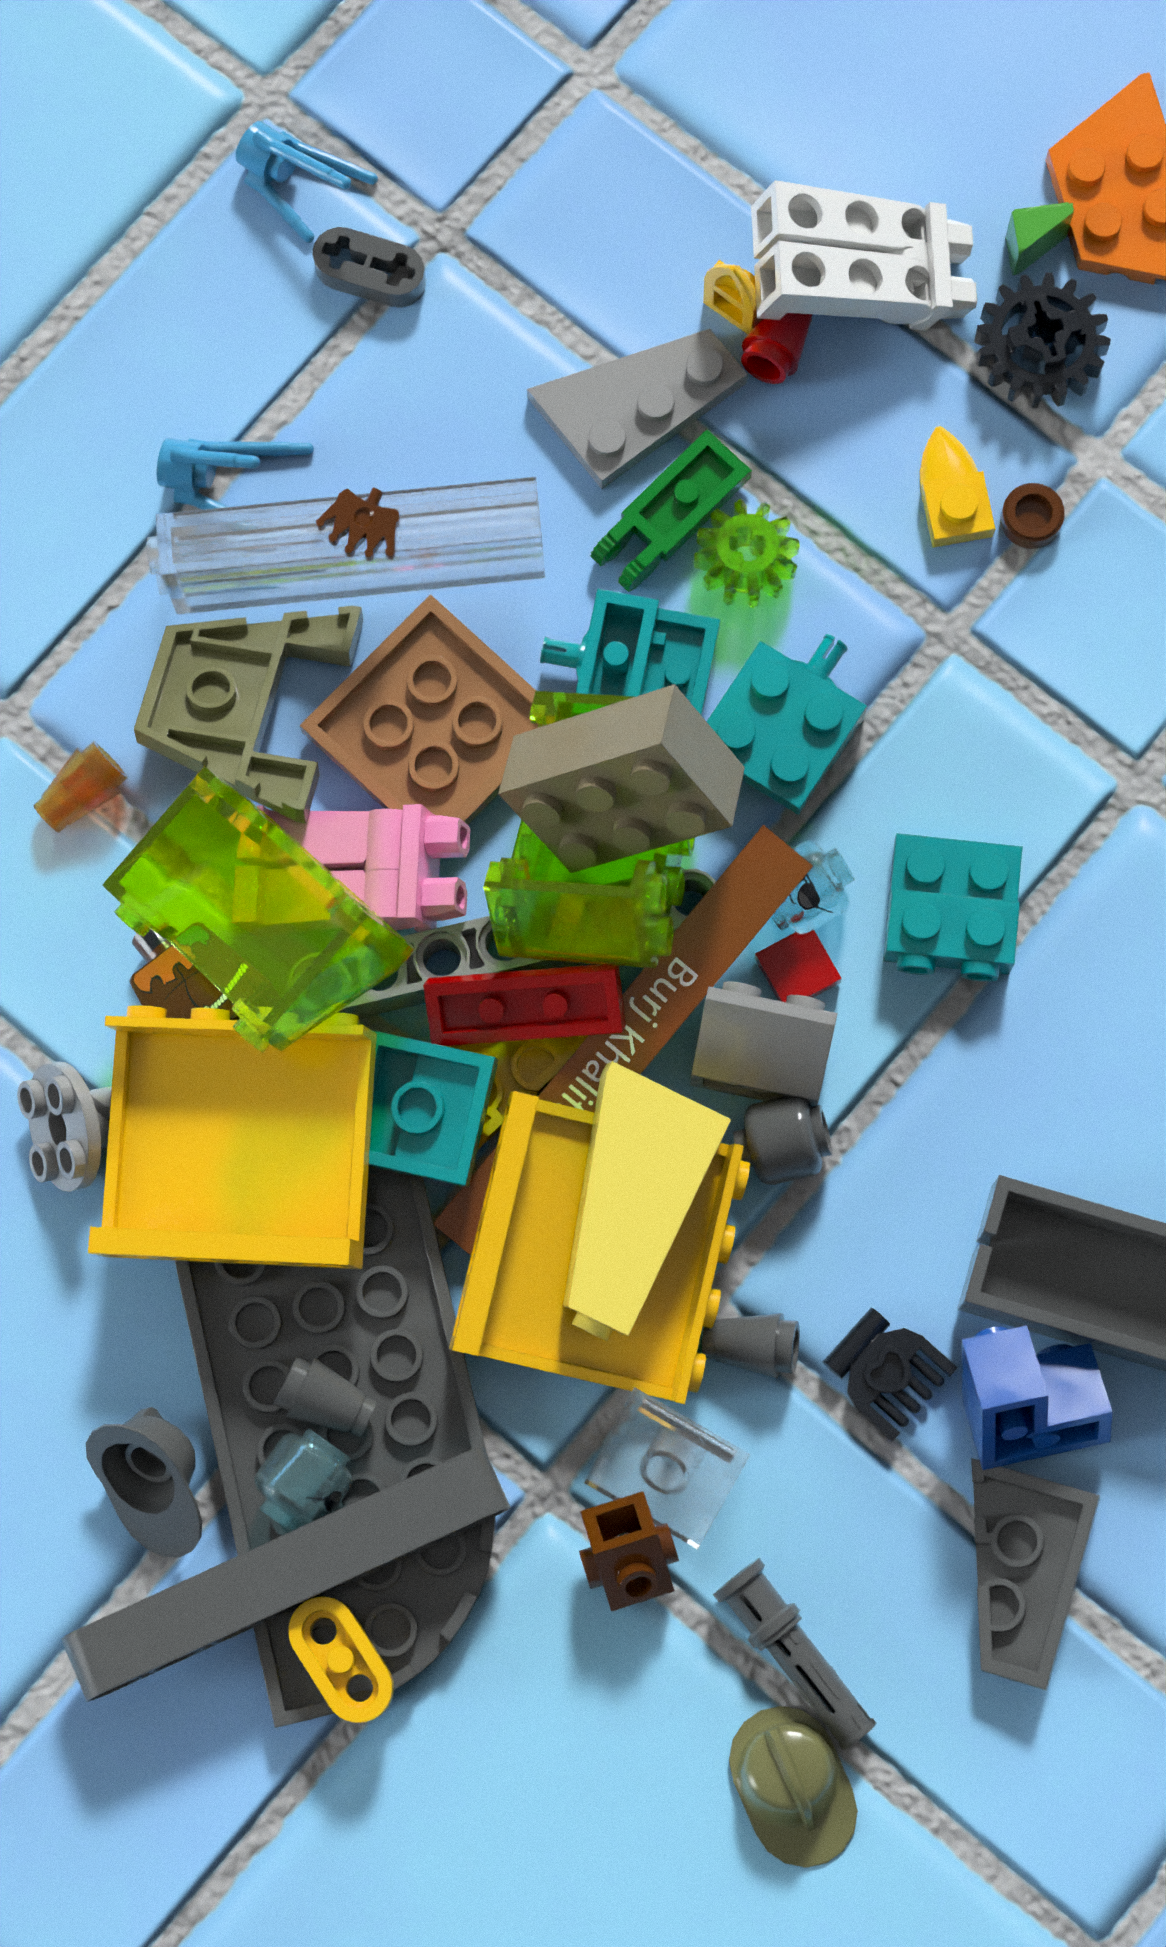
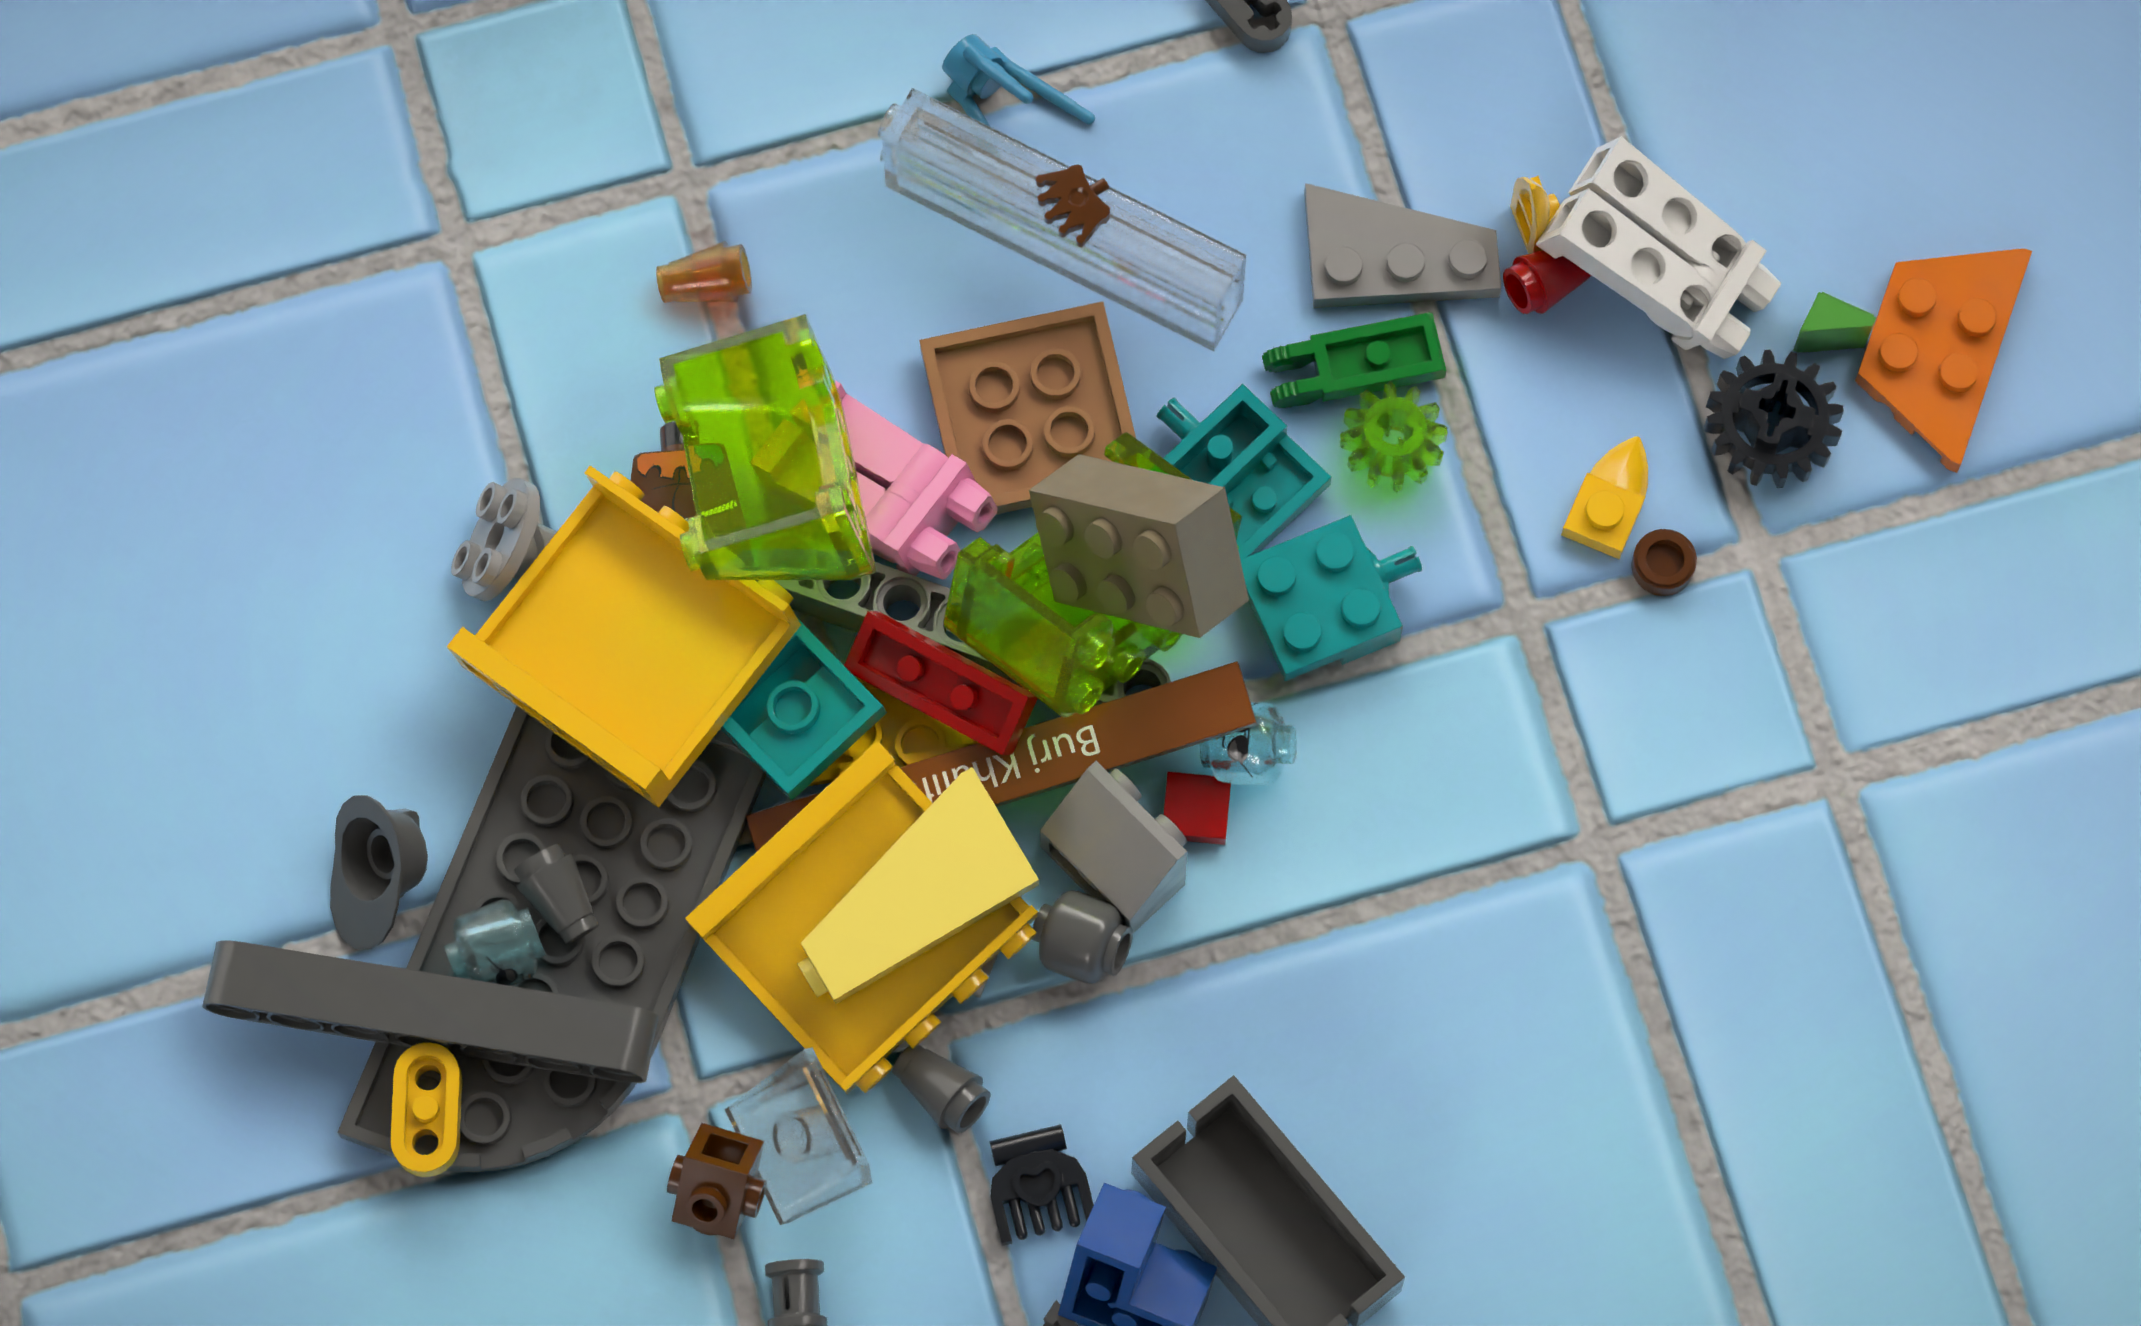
camera: 30 degrees right, 5 degrees down
(217, 692) = (871, 269): olive wing -> none
(953, 906) = (1362, 841): teal plate -> none

